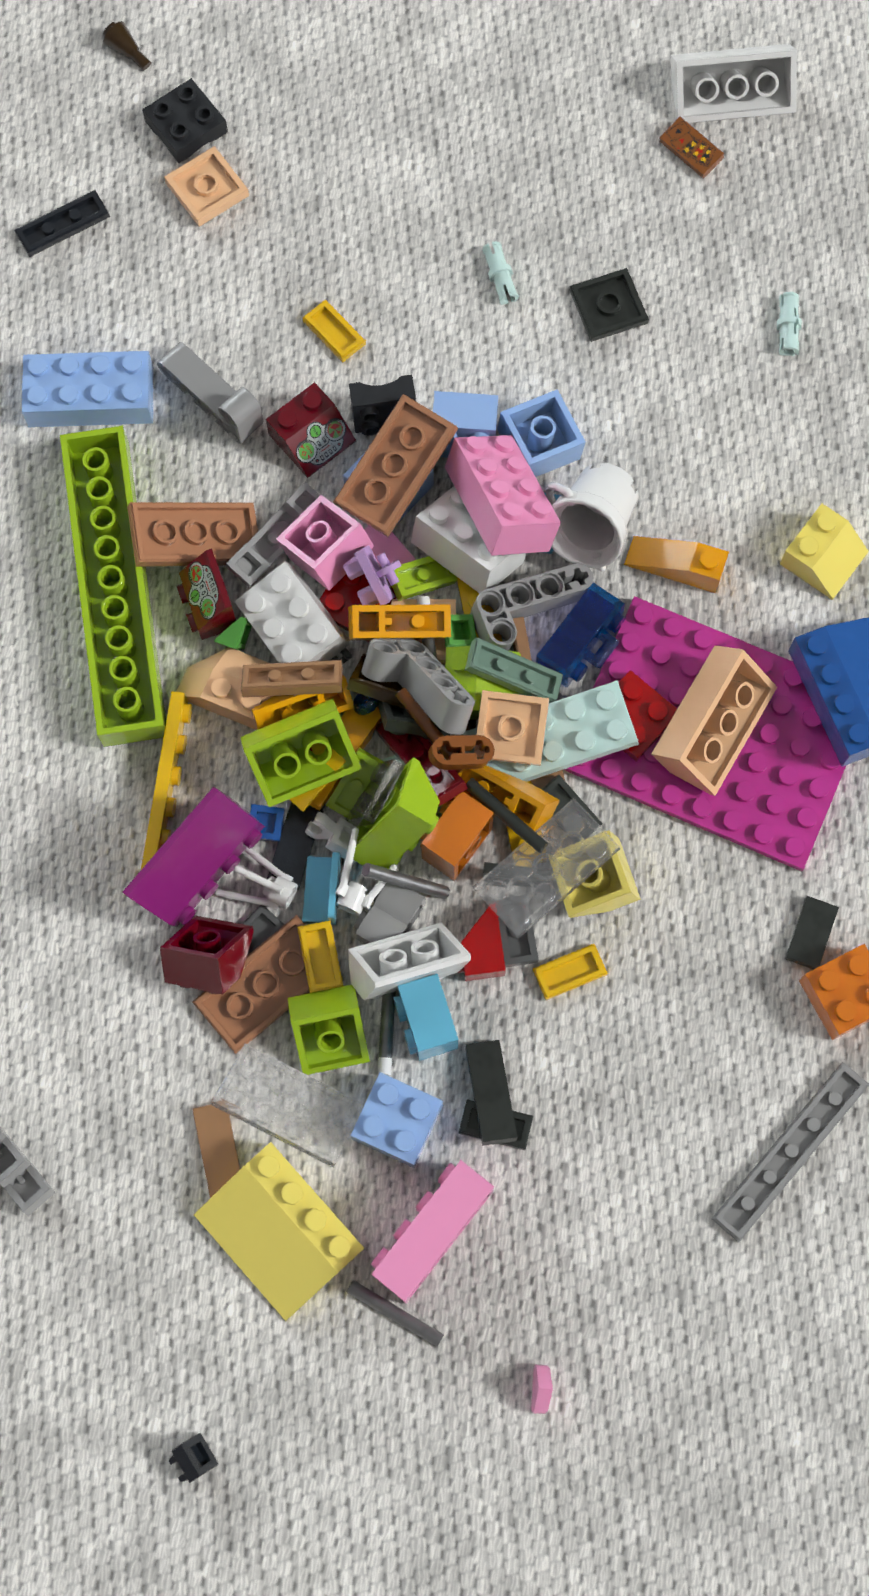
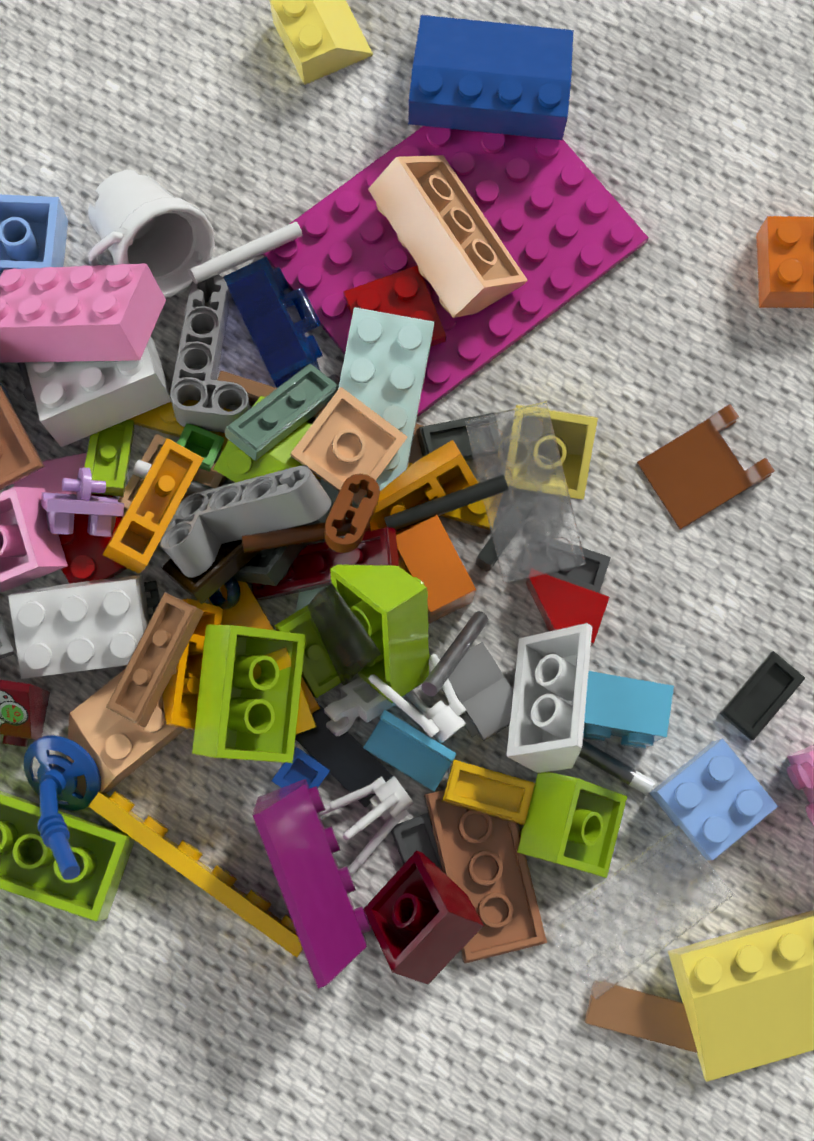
camera: 65 degrees left, 5 degrees up
(174, 663) = (57, 784): none -> blue dish
(236, 634) = (61, 698): bright green slope -> none
(491, 1092) = (730, 682): pearl dark grey tile -> none
(569, 972) = (635, 532): yellow tile -> none
(620, 588) = (245, 252): none -> white bar
(643, 996) = (700, 470): none -> dark orange flag
(678, 561) = (248, 176): light orange slope -> none
(811, 933) = (718, 266): pearl dark grey tile -> none

